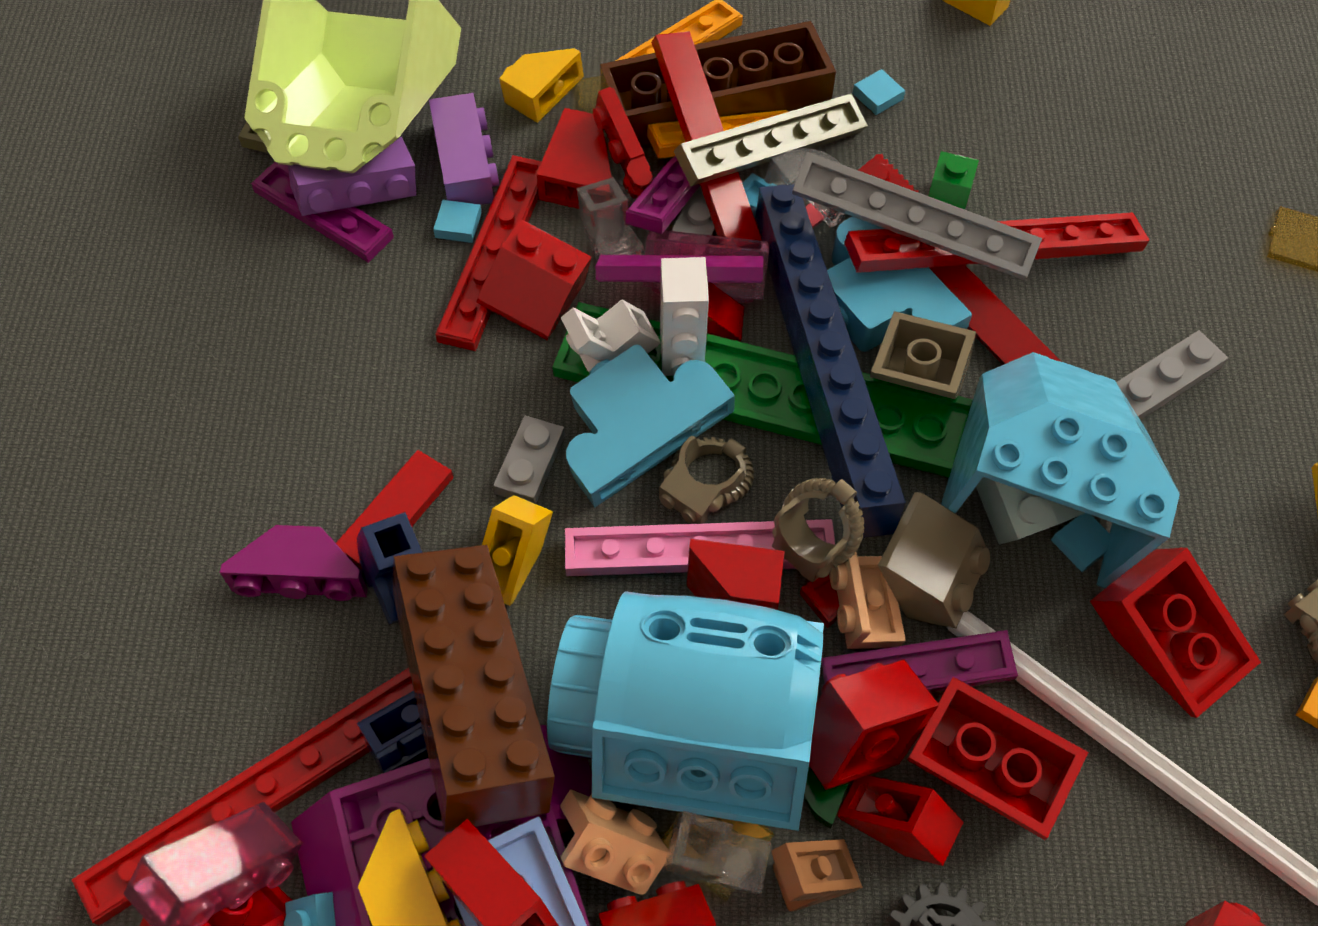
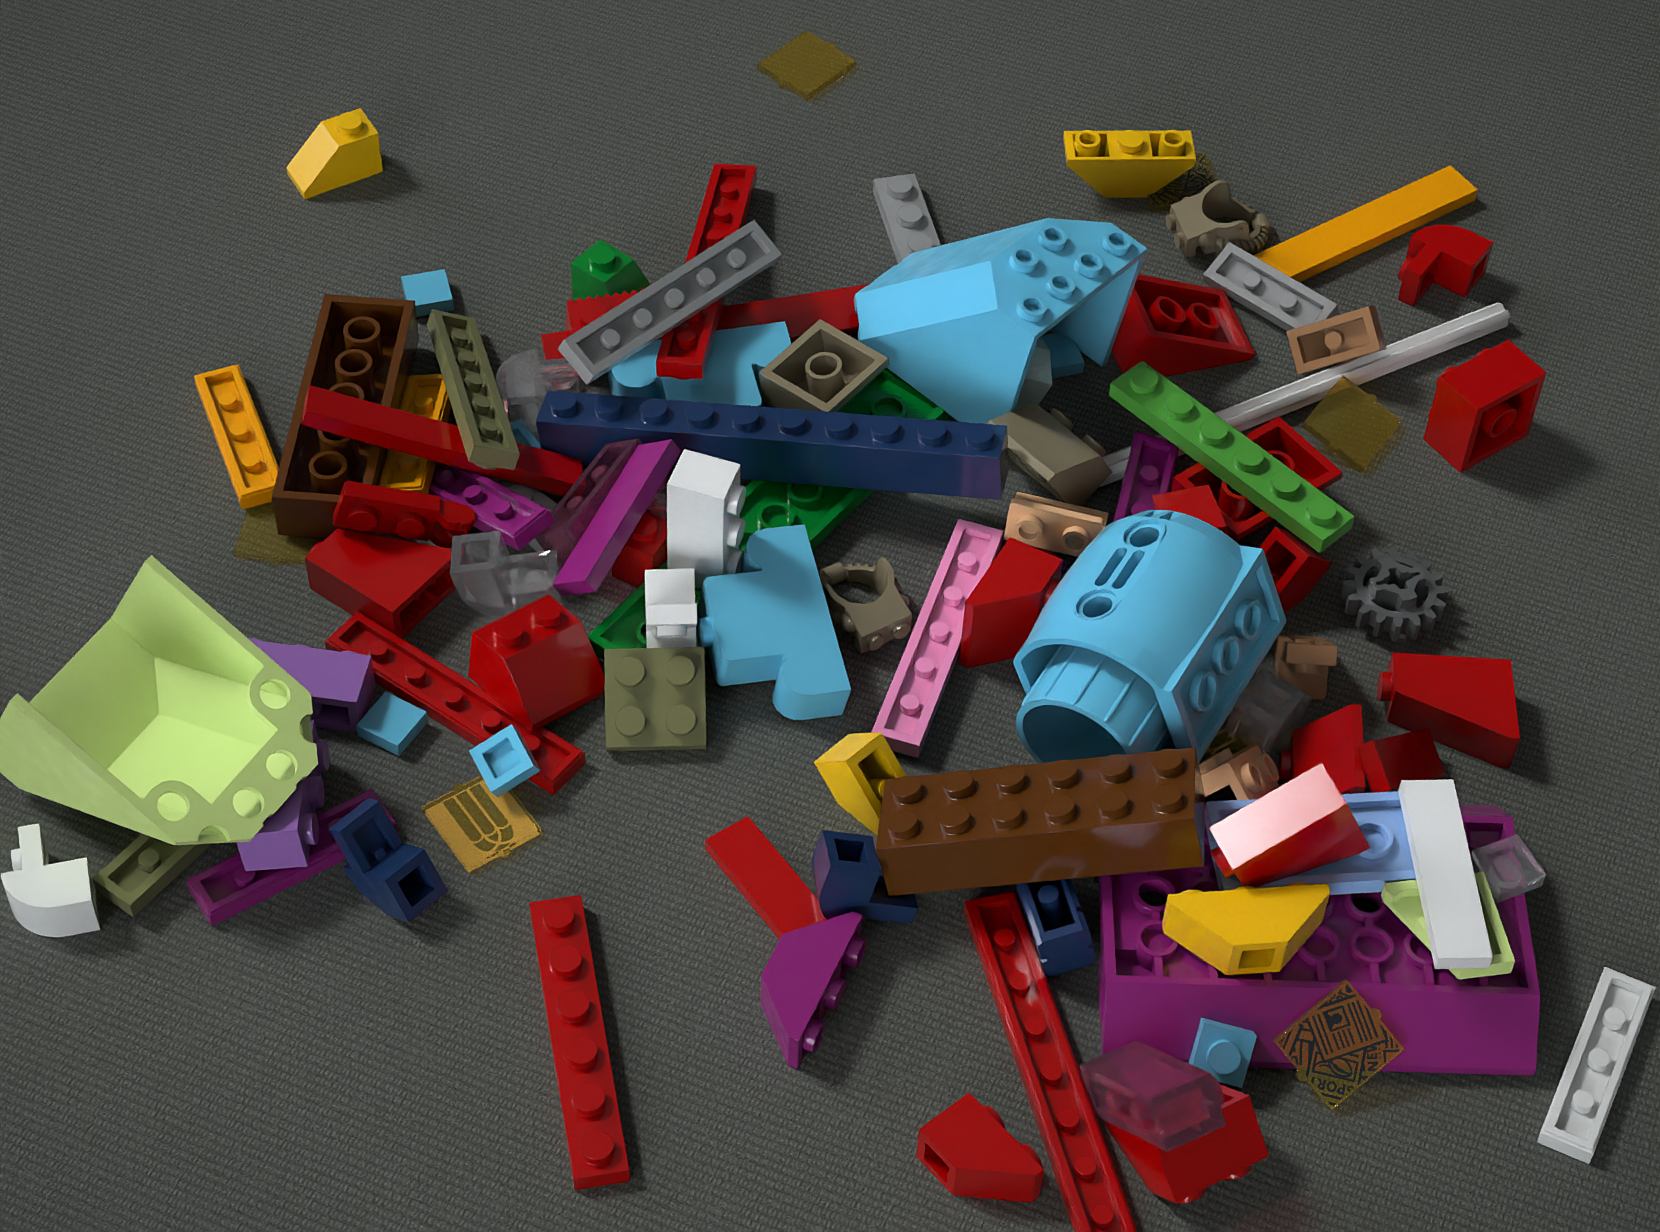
camera: 70 degrees left, 10 degrees down
(160, 748) = (977, 1155): none -> red slope
(209, 434) = (579, 1043): none -> red plate
(230, 92) = (46, 896): none -> white brick
(318, 260) = (384, 868): none -> dark blue brick
(394, 306) = (479, 823): none -> clear yellow piece
(435, 292) = (504, 760): none -> medium azure plate
(529, 459) = (762, 749): light grey plate -> none
(535, 366) = (655, 699): none -> olive plate
(541, 81) = (233, 577): yellow slope -> none
(801, 546) = (985, 541): dark tan piece -> none
(1000, 725) = (1232, 456): none -> bright green plate
(1154, 838) = (1351, 424): none -> clear yellow piece
(1246, 786) = (1336, 340): none -> medium nougat slope
(1280, 708) = (1267, 290): none -> light grey plate

